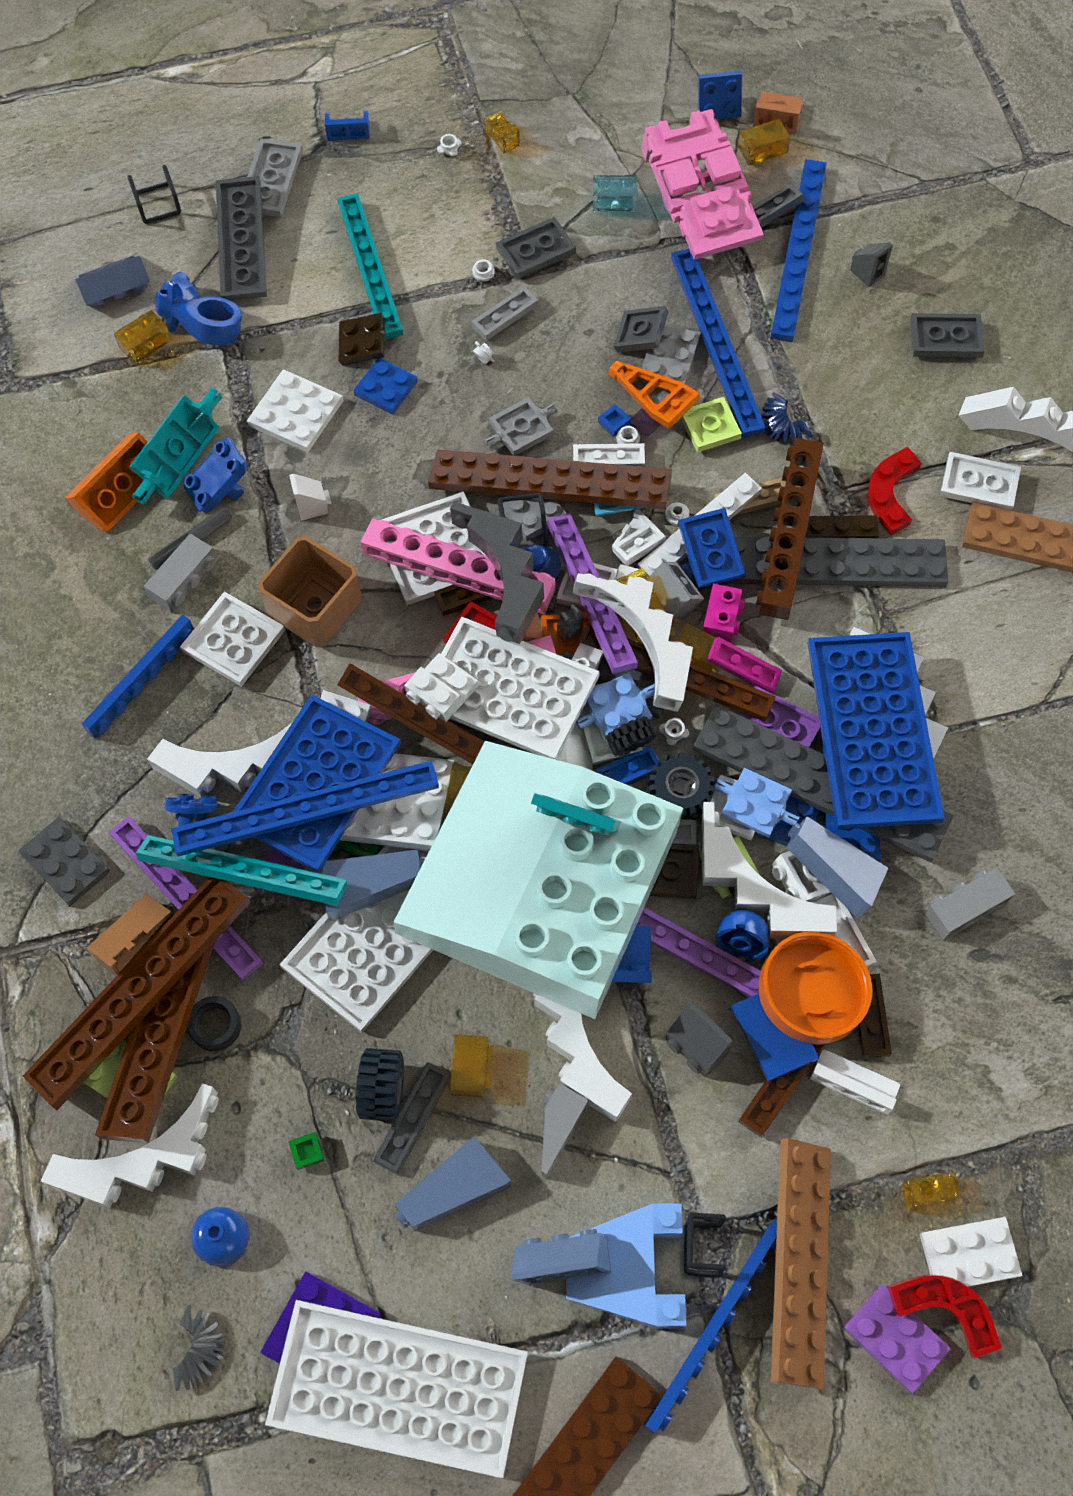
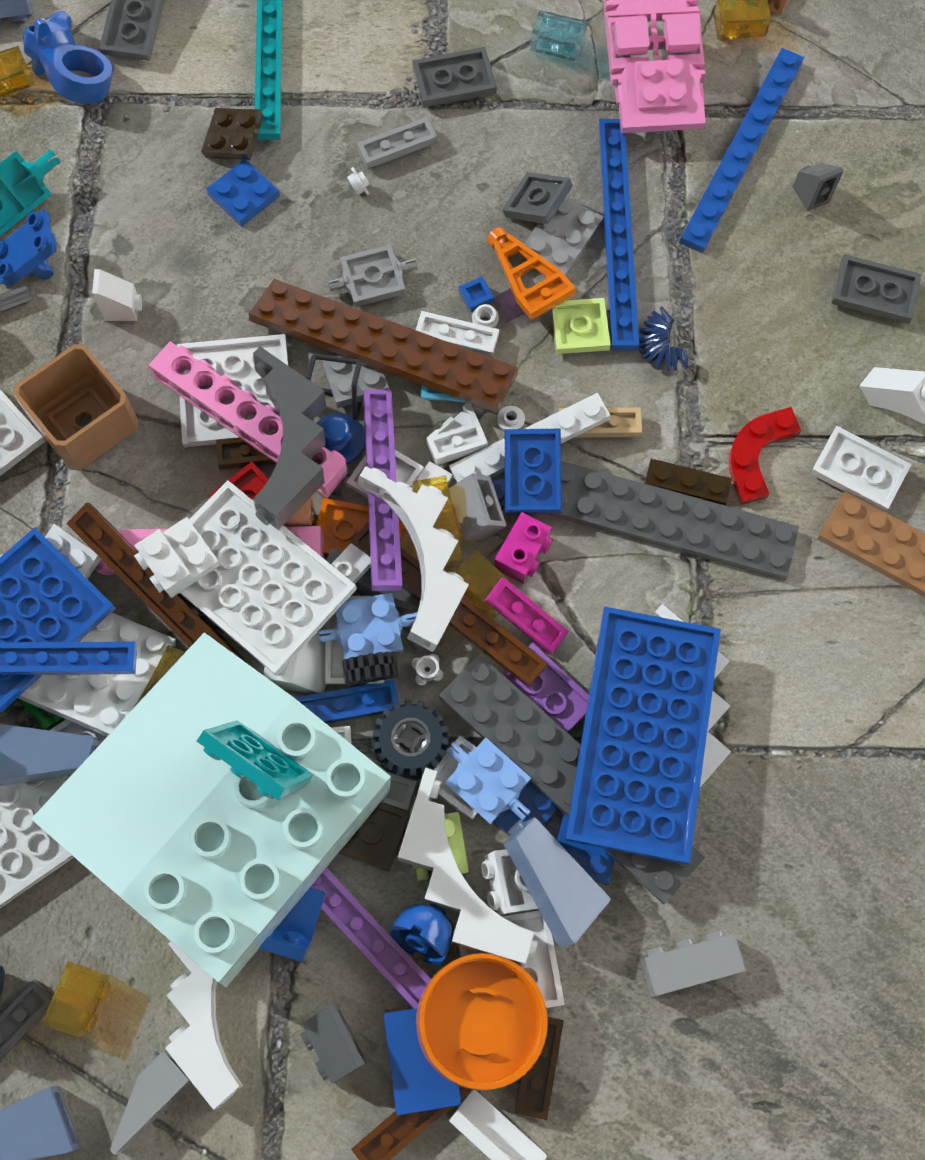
camera: 10 degrees right, 5 degrees up
(295, 410) = (137, 196): white plate -> none
(483, 270) = (389, 88): white plate -> none
(571, 624) = (347, 518): dark grey plate -> none
(777, 204) = (732, 92): dark grey plate -> none
(779, 603) = (588, 555): reddish brown brick -> none

